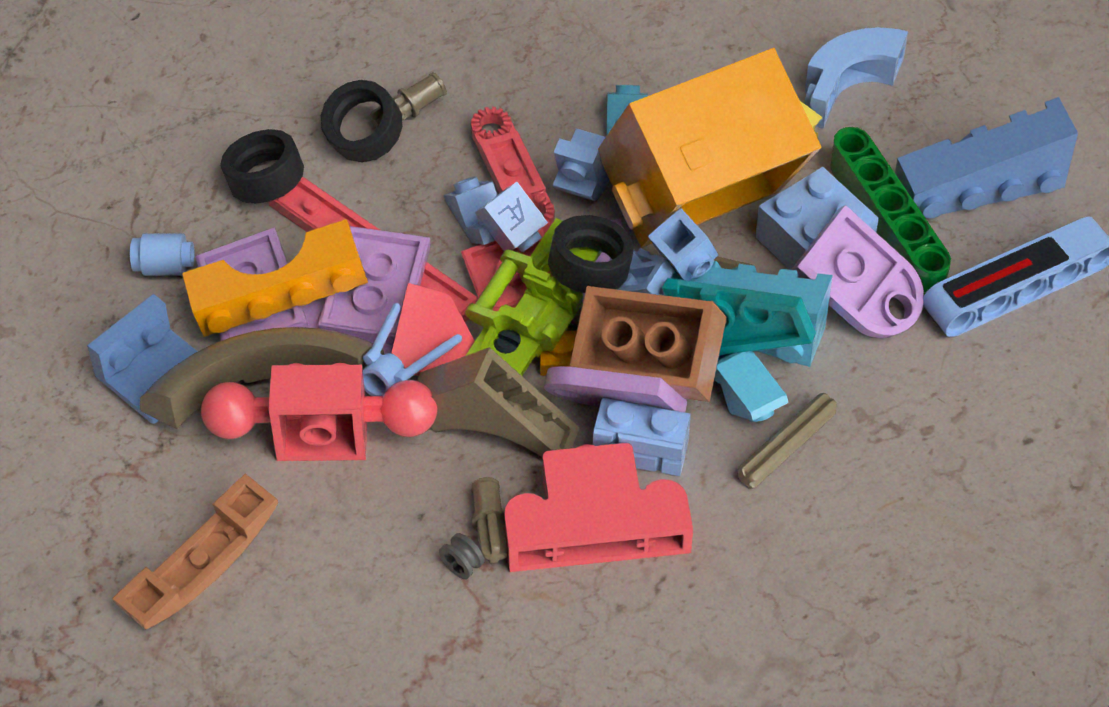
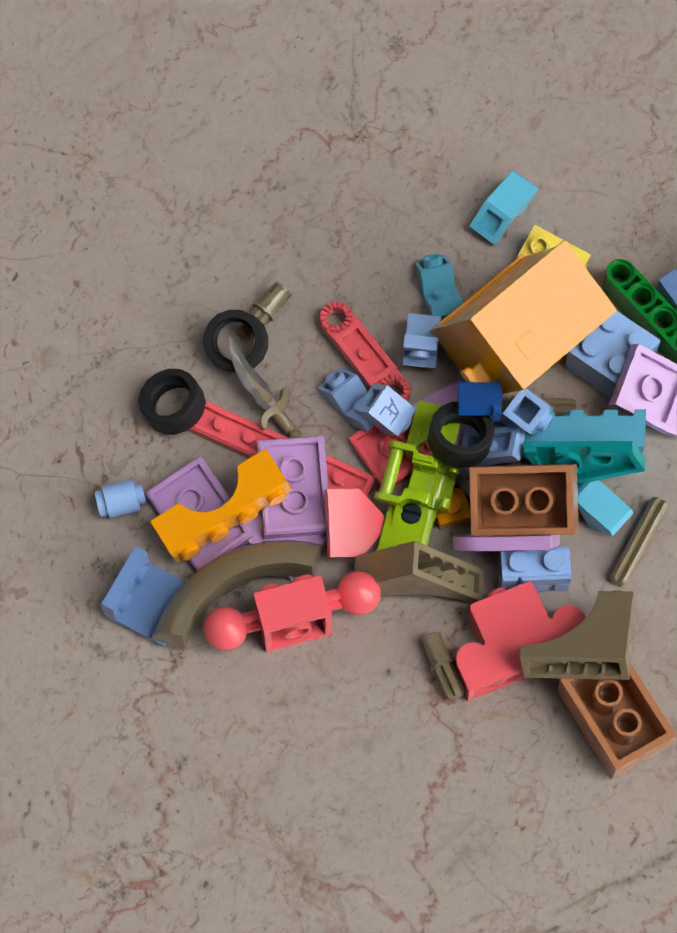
camera: 15 degrees left, 15 degrees up
(201, 558) = (240, 750): nougat slope -> none
(372, 178) = (260, 390): none -> piece
(388, 369) = (332, 565): light blue plant -> none
(461, 556) = (432, 701): dark grey bush -> none
(626, 217) = (480, 399): none -> blue tile
(678, 524) = (594, 649): none -> dark tan arch
(692, 619) = (617, 720): none -> nougat brick
(732, 46) = (502, 206): none -> medium azure slope
(851, 60) = (600, 186): light blue arch -> none

